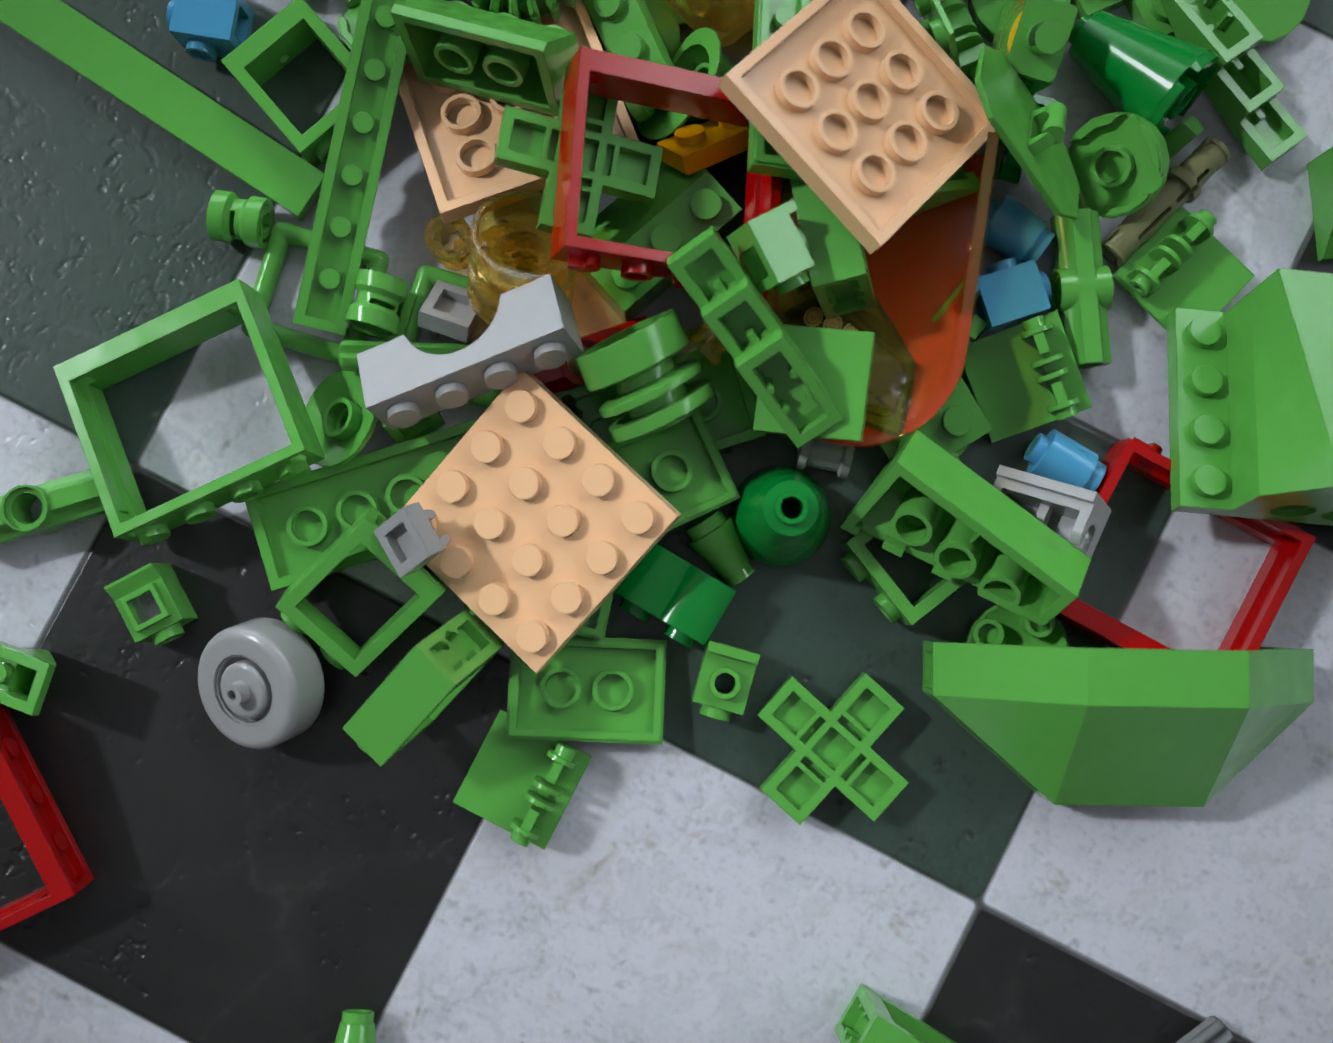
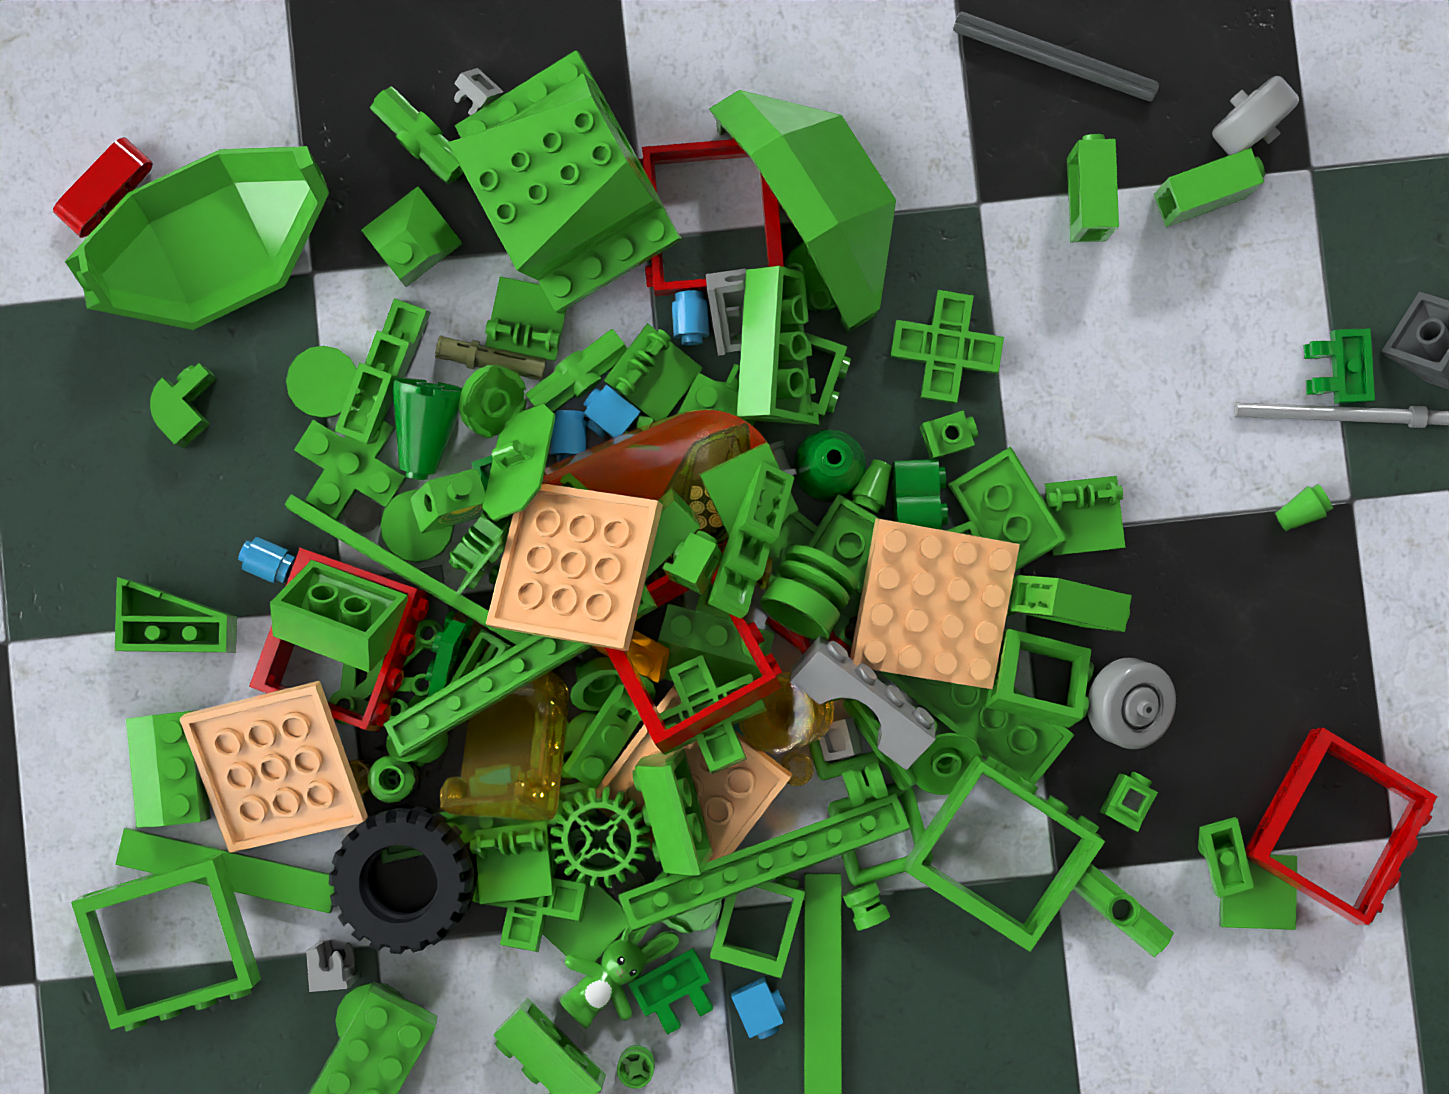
camera: 120 degrees left, 0 degrees up
(410, 539) = (993, 663): light grey tile -> none
(1183, 134) = (445, 372): bright green tile -> none

